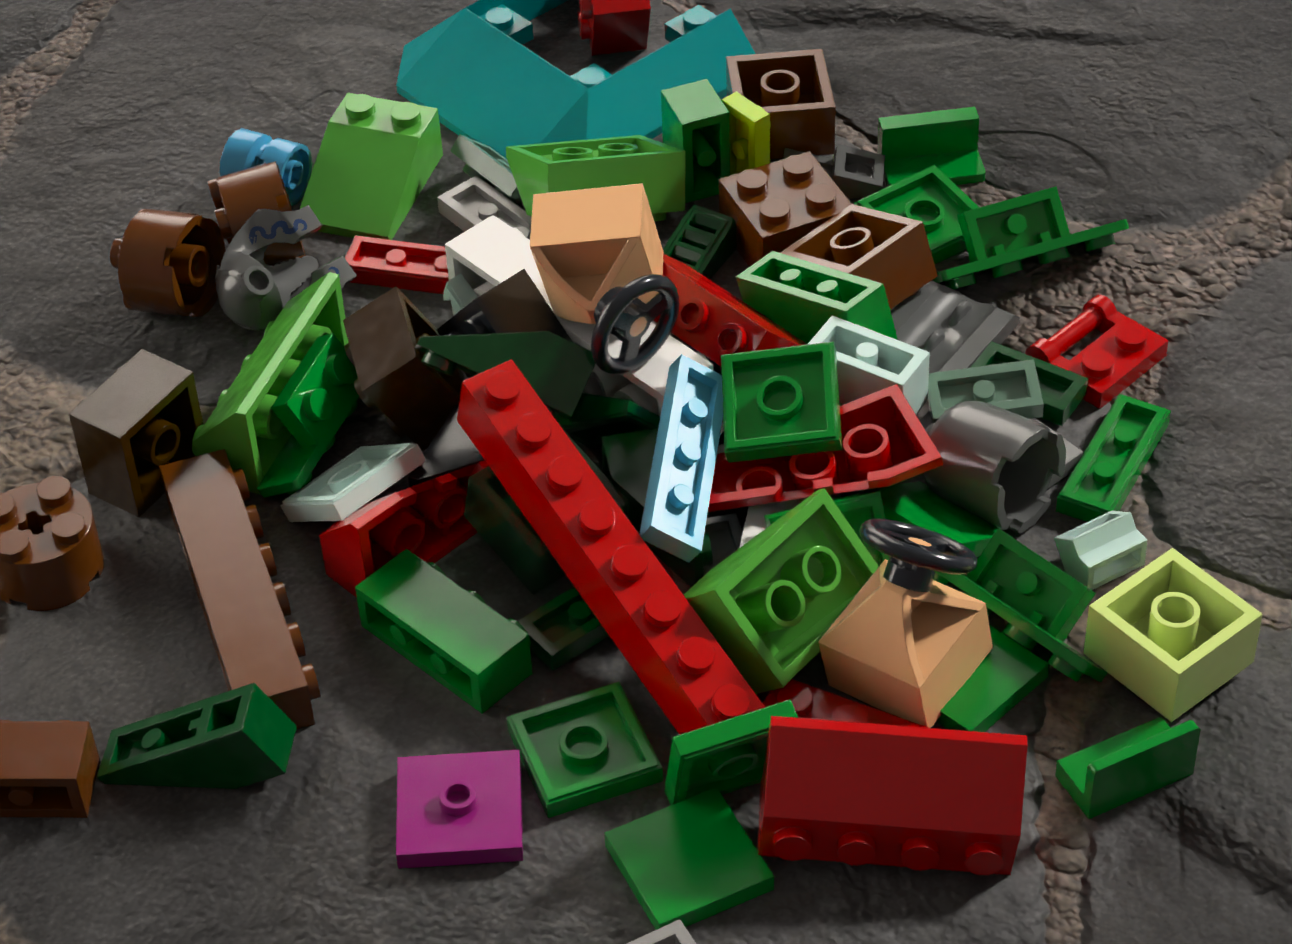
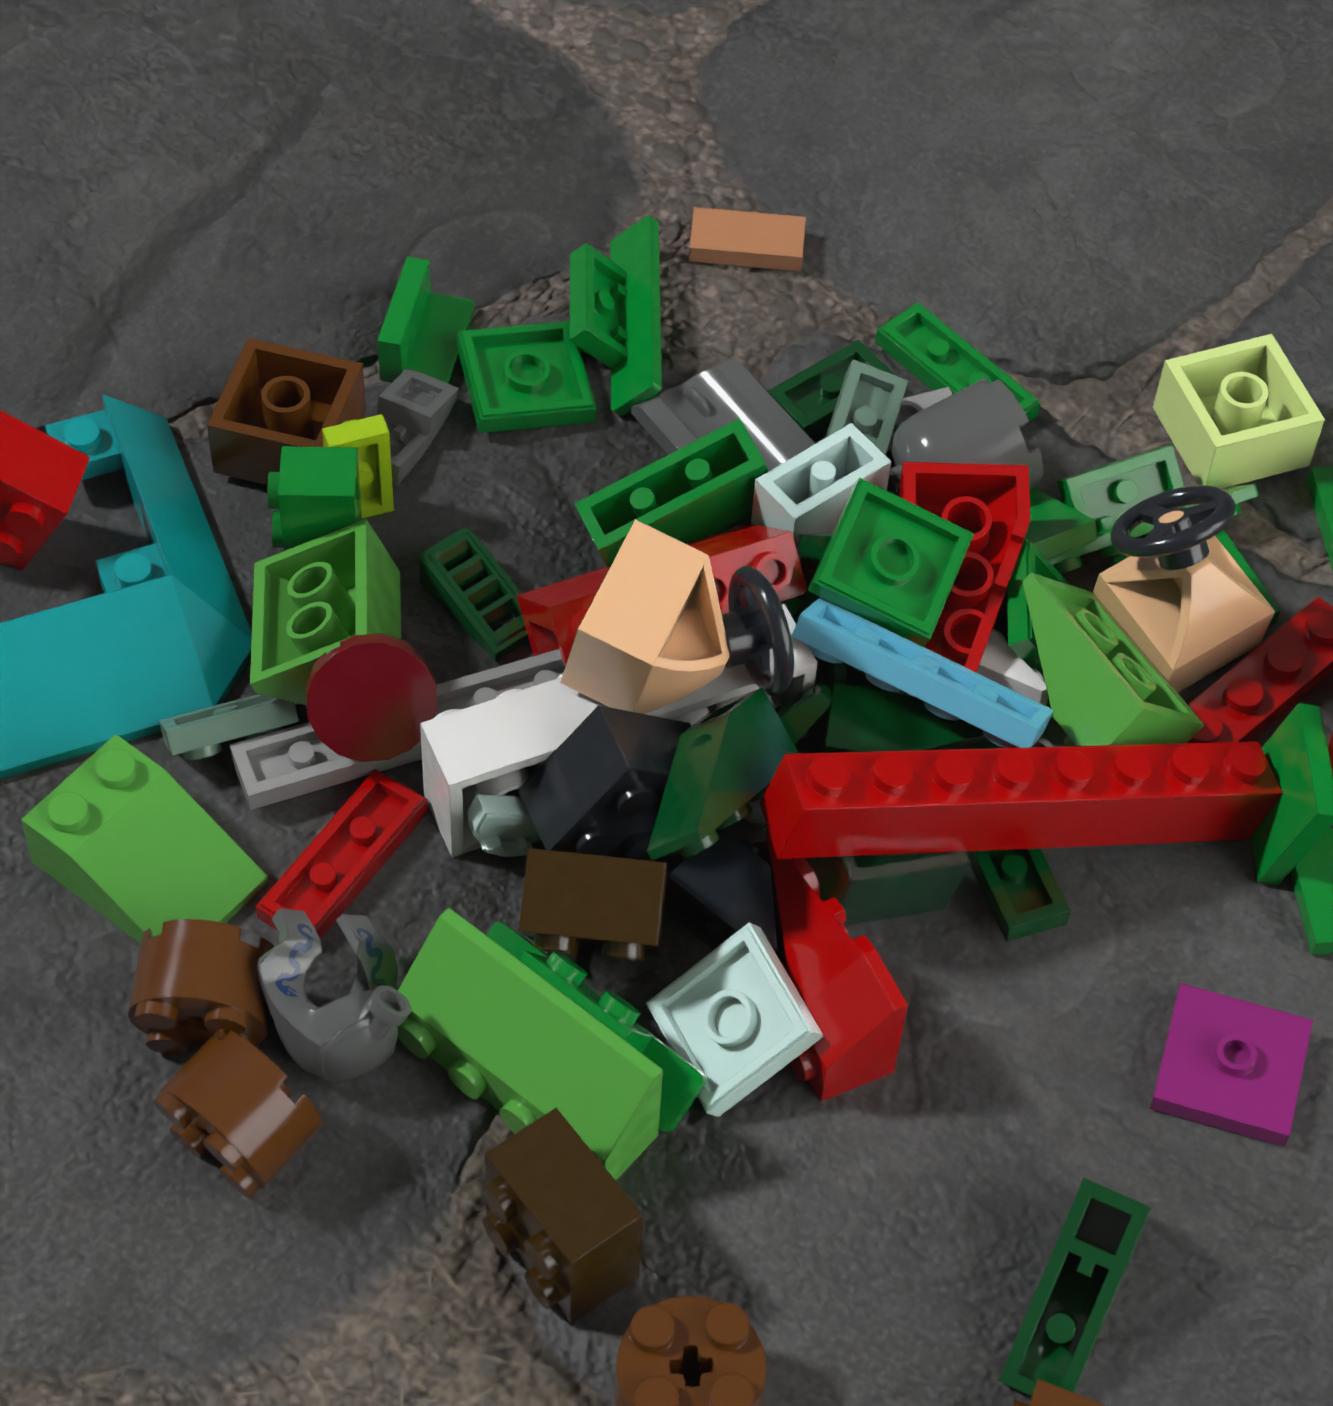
camera: 75 degrees left, 10 degrees up
(235, 583) = (848, 1188): reddish brown brick -> none
(252, 148) = (72, 967): dark azure wheel -> none
(445, 630) = (994, 998): green brick -> none
(512, 185) = (370, 697): none -> dark red tile
(584, 749) = (1184, 930): green tile -> none
(779, 204) = (480, 477): reddish brown brick -> none
(872, 247) = (610, 427): reddish brown brick -> none
(1102, 549) = (1083, 424): light aqua piece -> none
(1112, 359) = (810, 308): red plate -> none
(1169, 296) = (747, 239): none -> nougat tile

